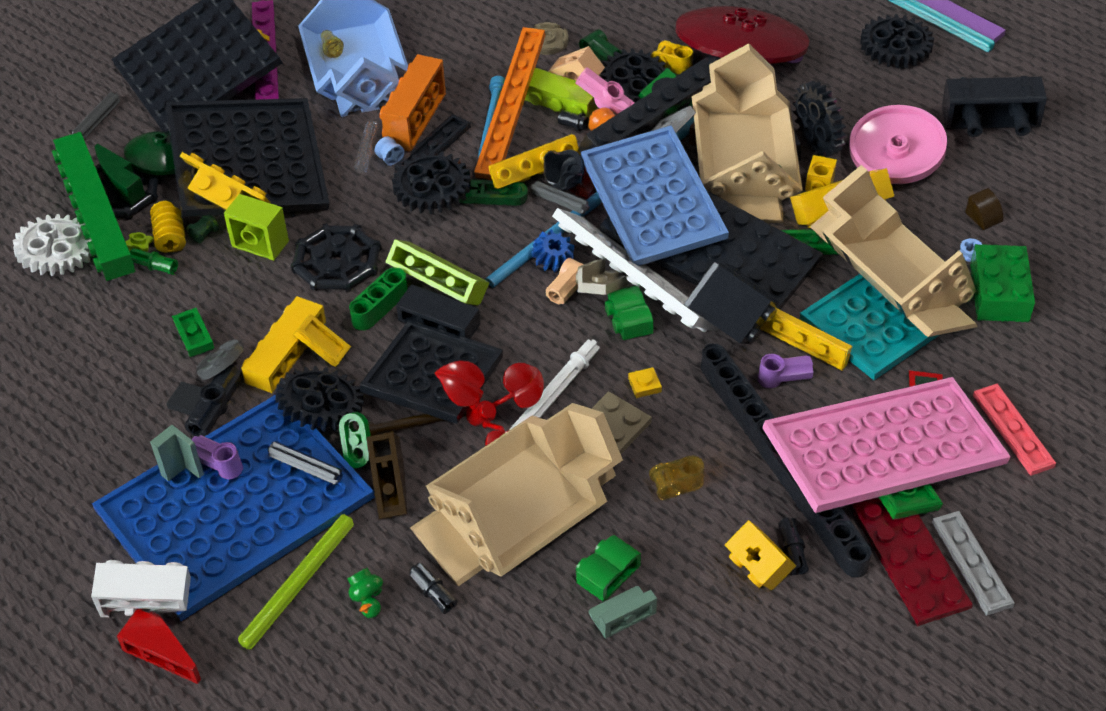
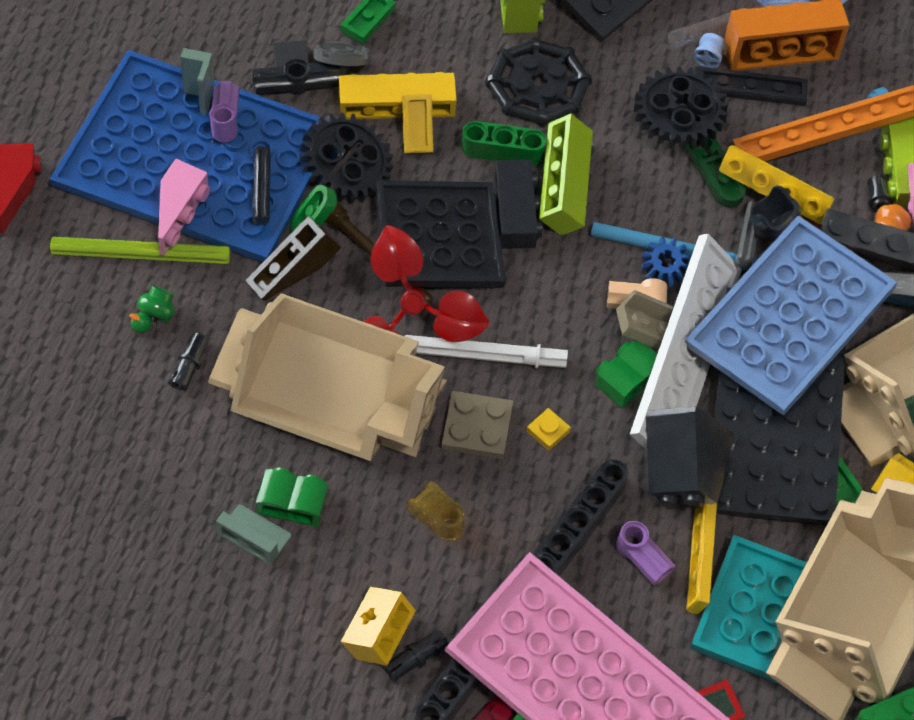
camera: 55 degrees right, 10 degrees up
(140, 586) = (50, 131): white wedge -> none
(278, 525) = (180, 195): none -> bright pink slope

